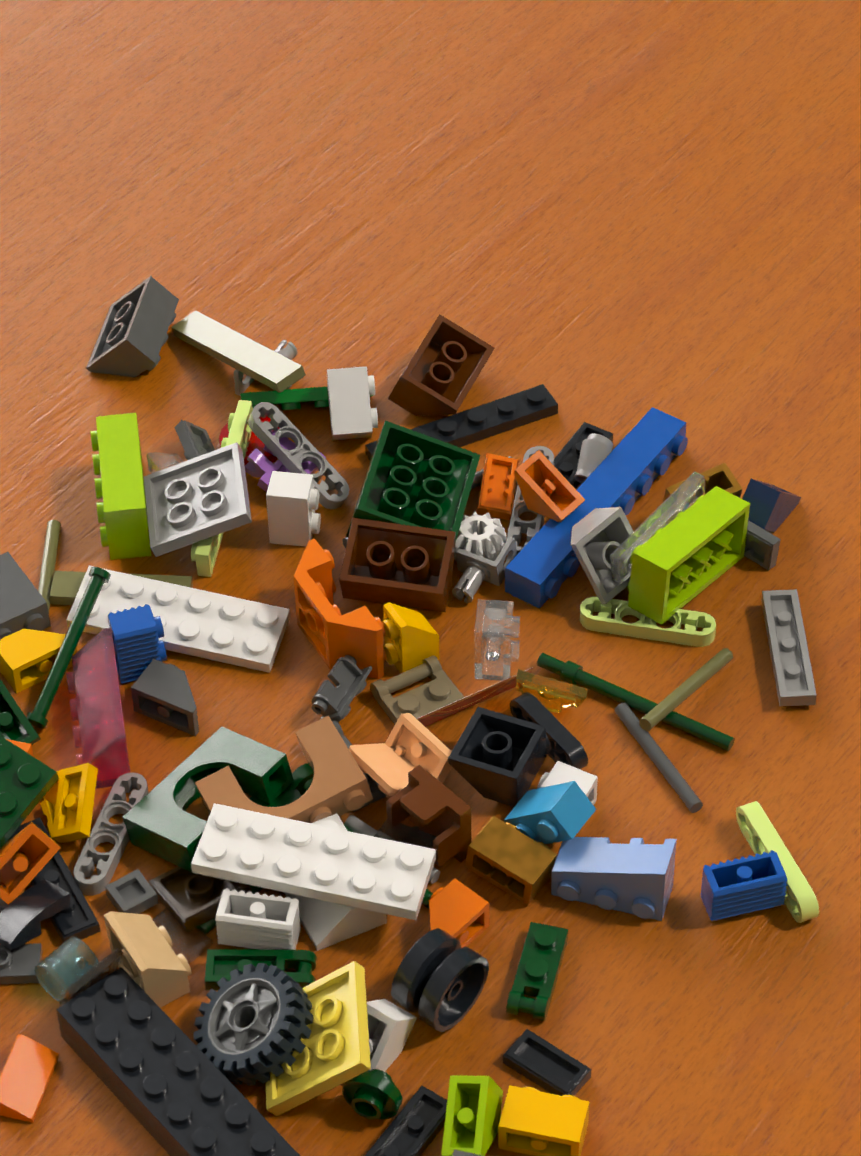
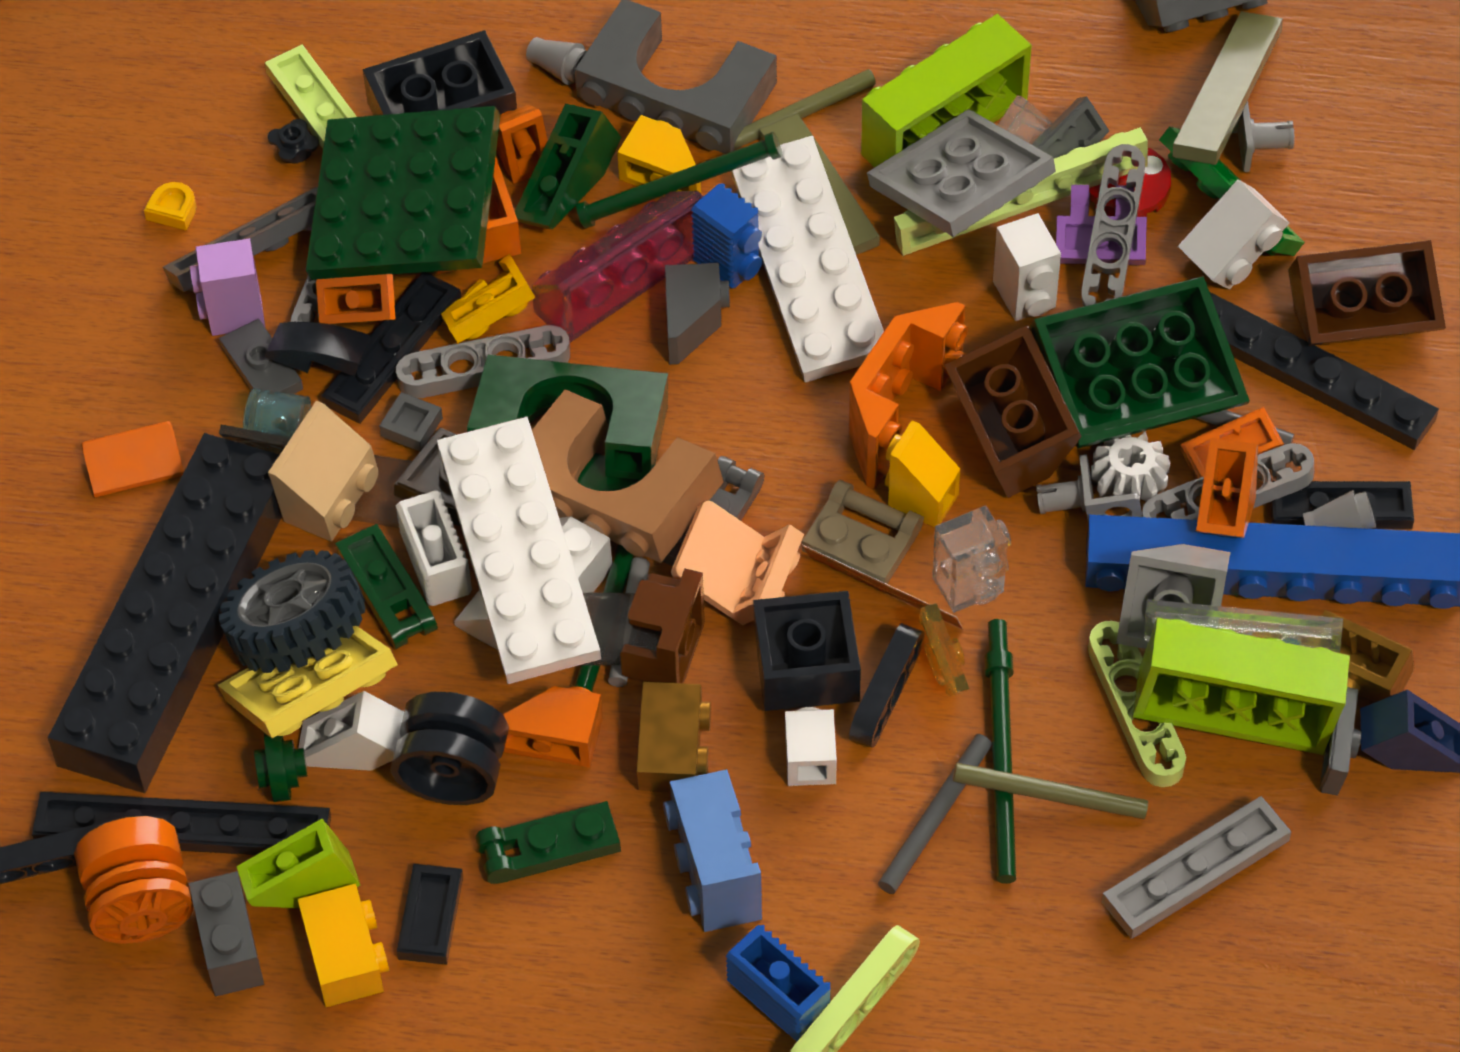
camera: 60 degrees right, 10 degrees up
(349, 682) = (824, 456): dark grey hinge -> none
(552, 812) = (744, 740): dark azure brick -> none

